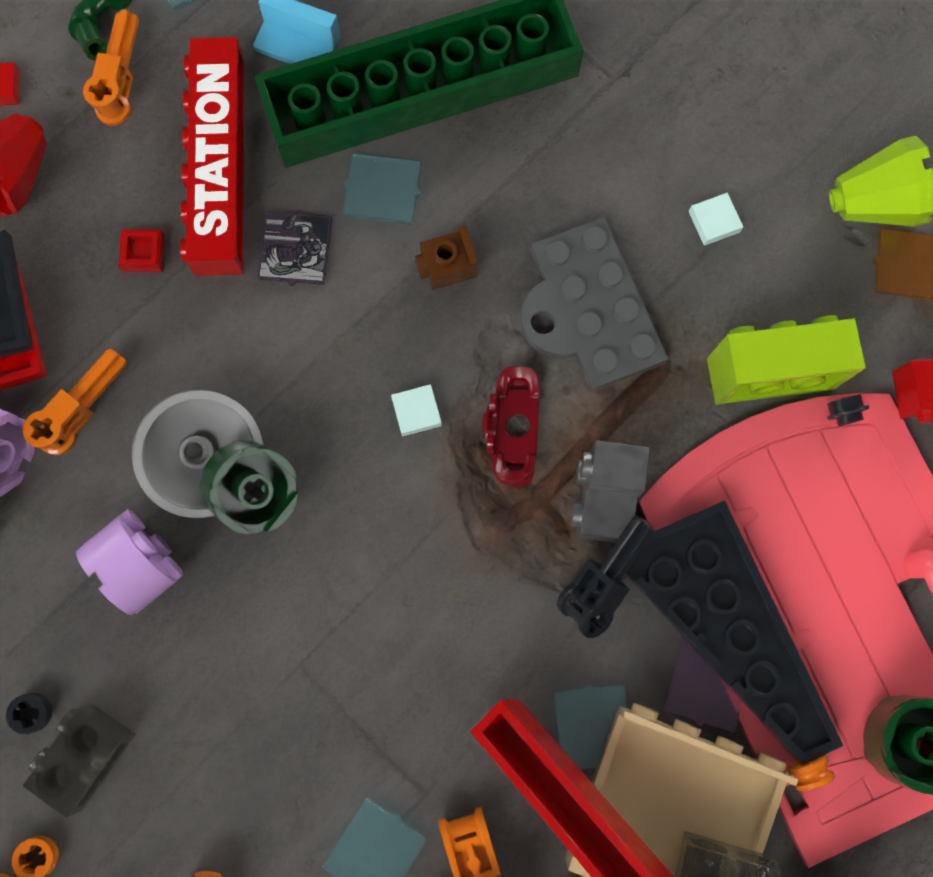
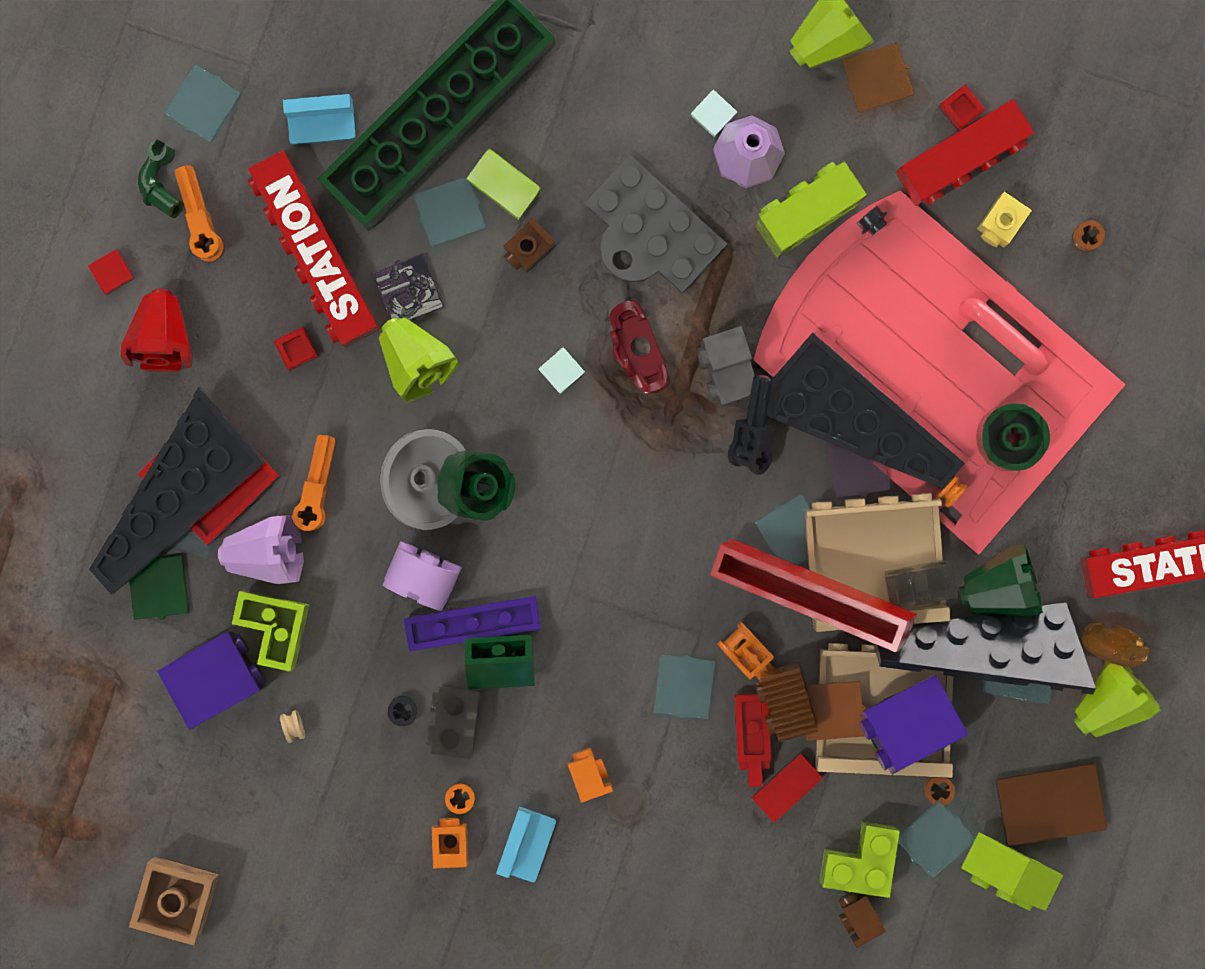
camera: 25 degrees left, 10 degrees up
(164, 649) = (472, 622): none -> dark purple plate
(166, 712) = (499, 662): none -> dark green brick
(258, 319) = (415, 359): none -> lime cone
(454, 184) = (504, 184): none -> lime slope
(738, 272) = (744, 163): none -> lavender cone

